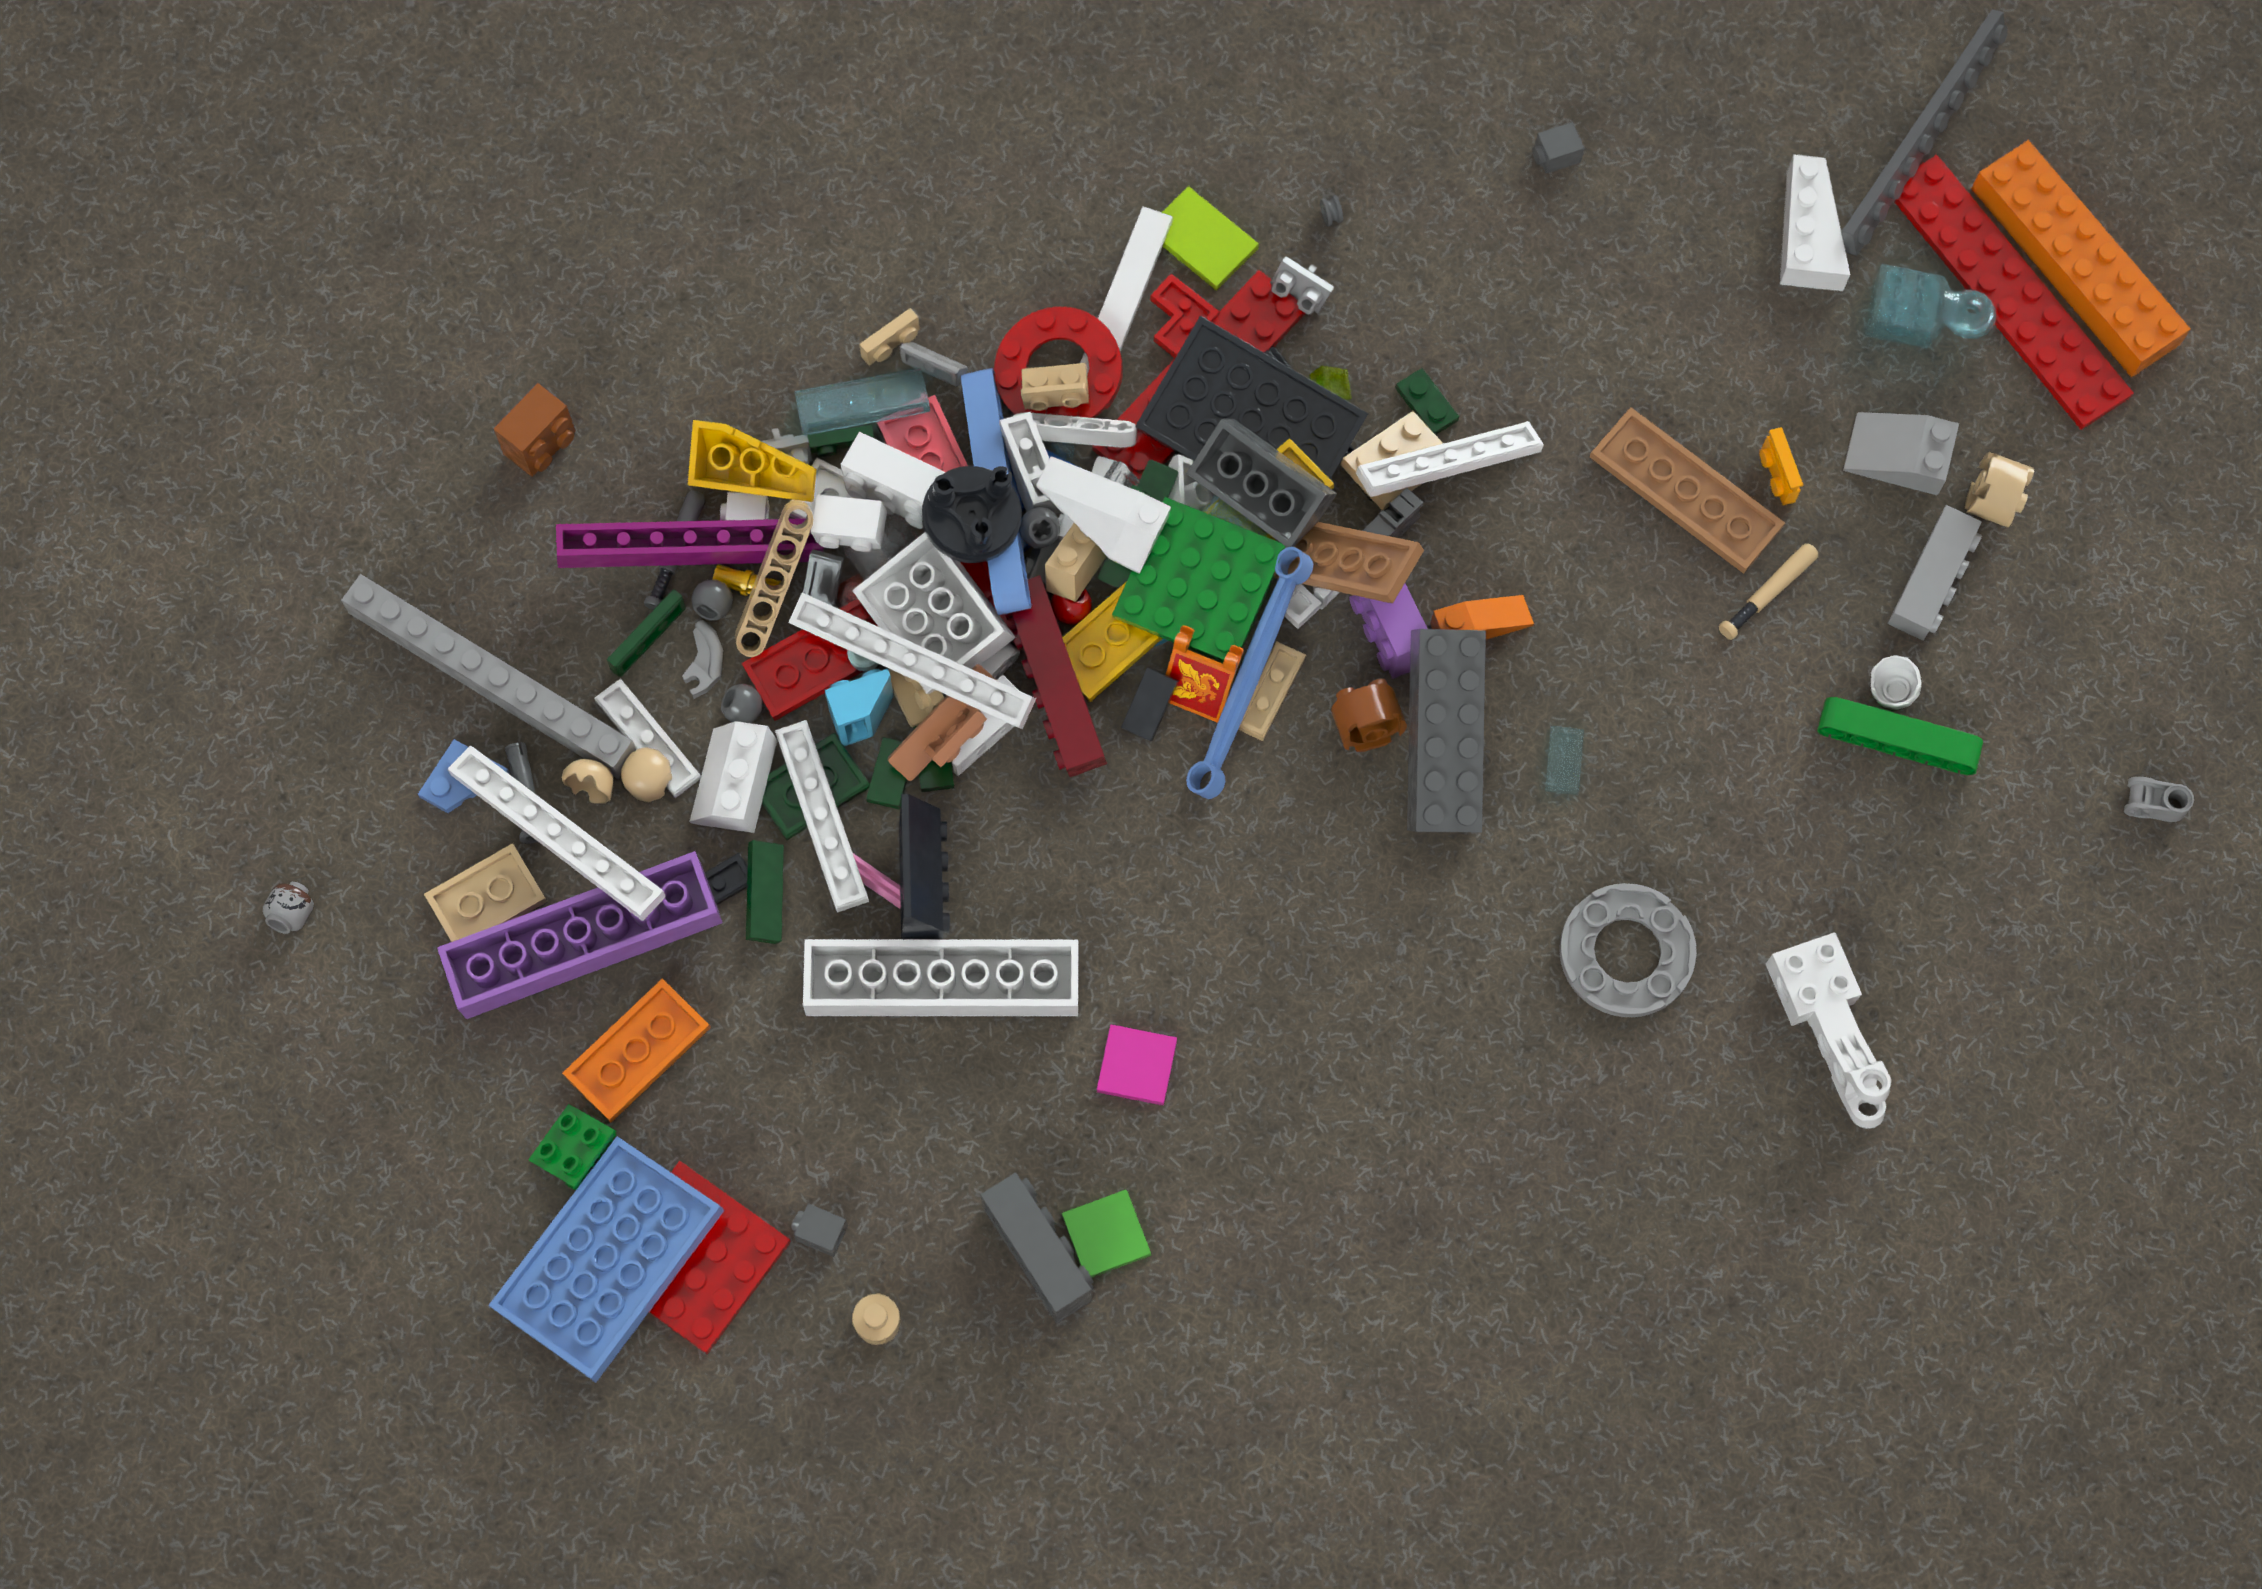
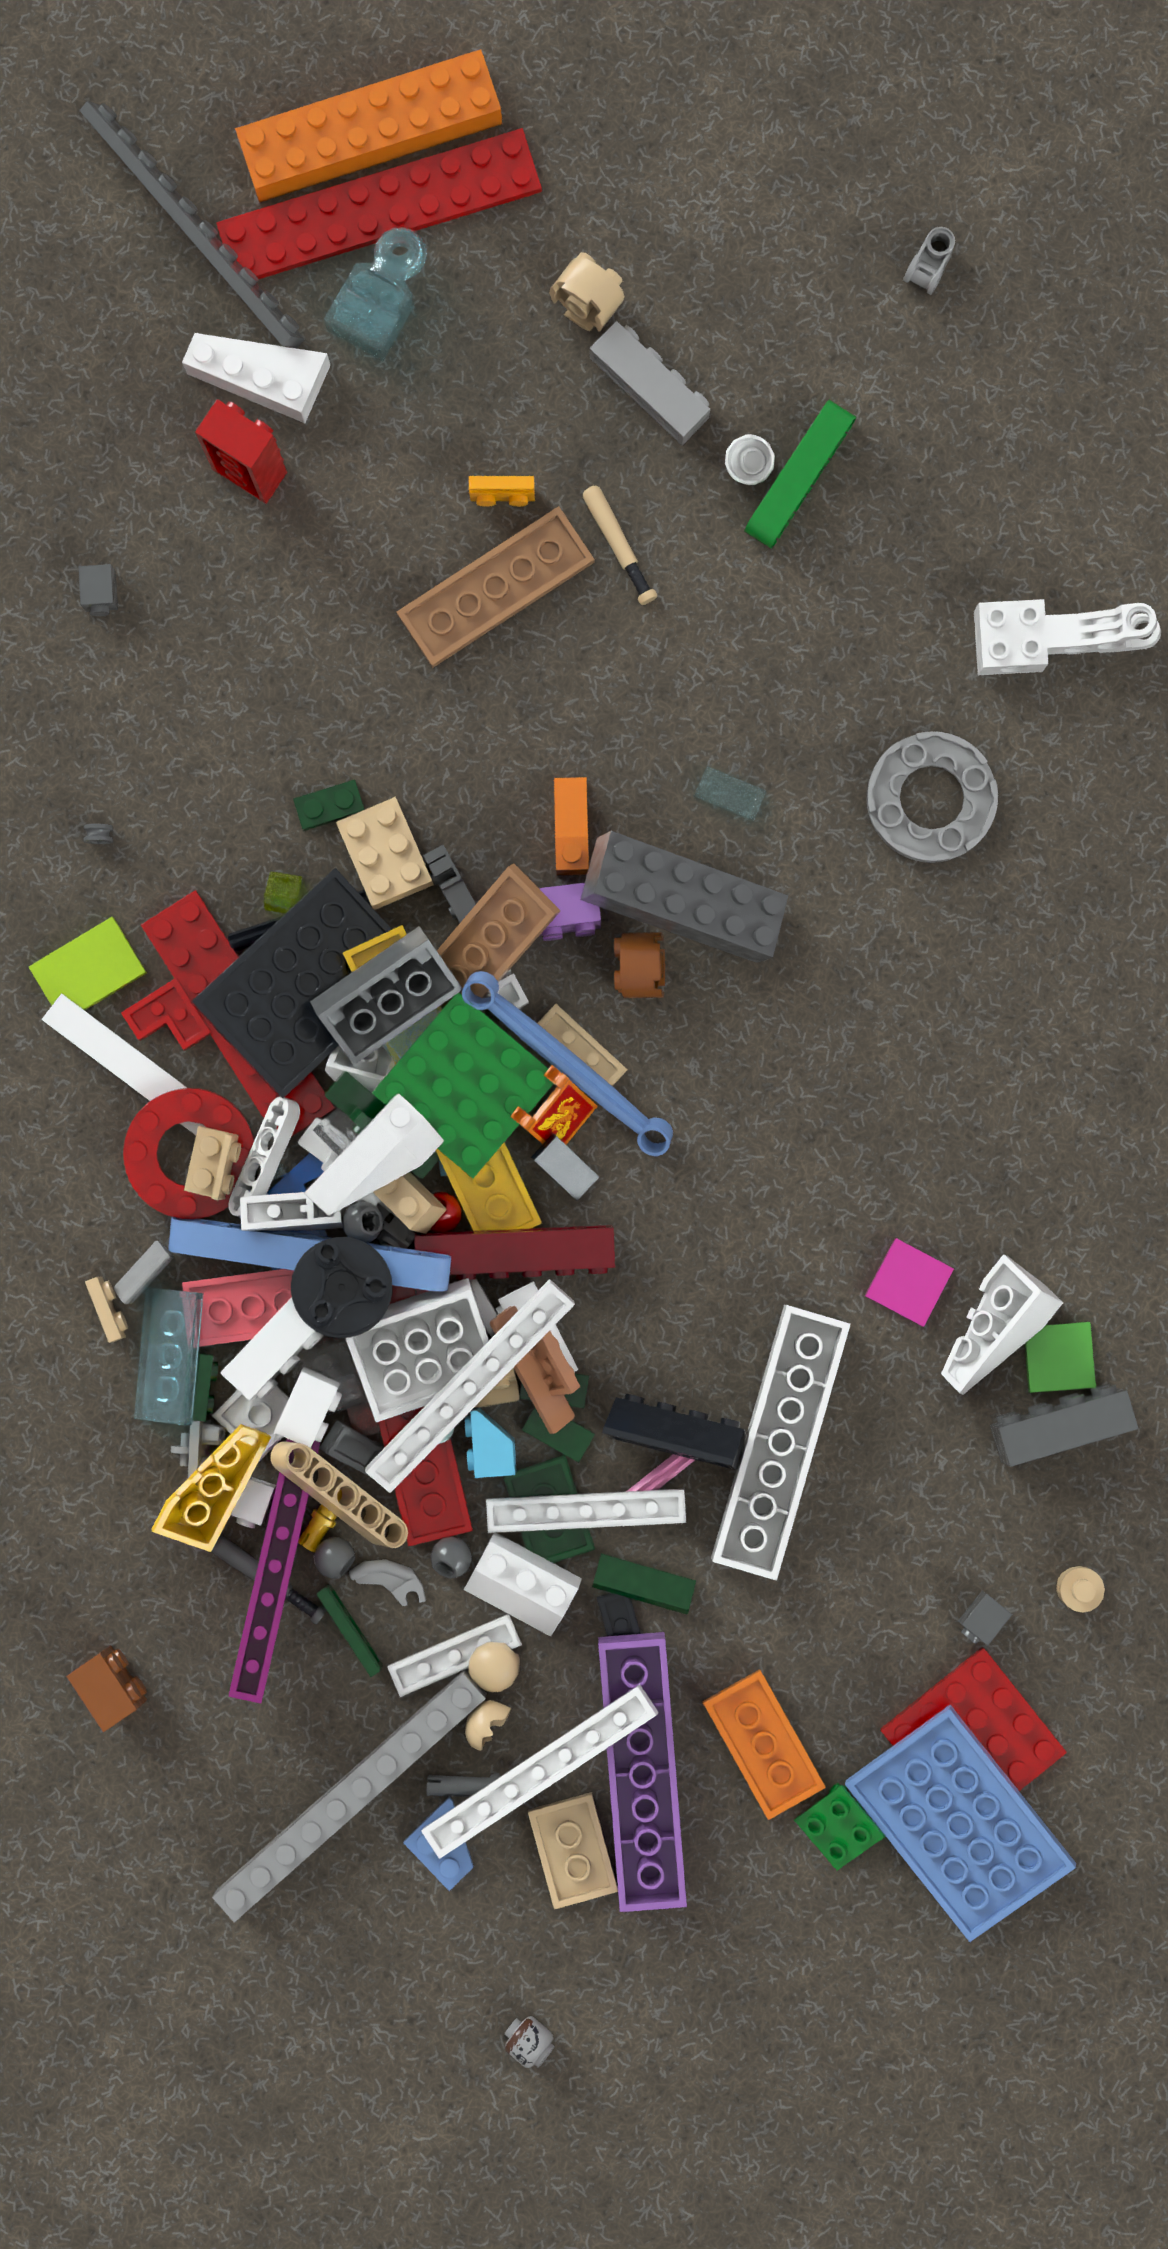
camera: 70 degrees left, 15 degrees up
(1132, 1170) = (1006, 1318): none -> white wedge
(1301, 284) = (171, 887): light grey hips -> none
(1449, 459) = (402, 804): white tile -> none
(1730, 220) = (241, 450): none -> red brick
(1902, 449) = (515, 368): light grey slope -> none

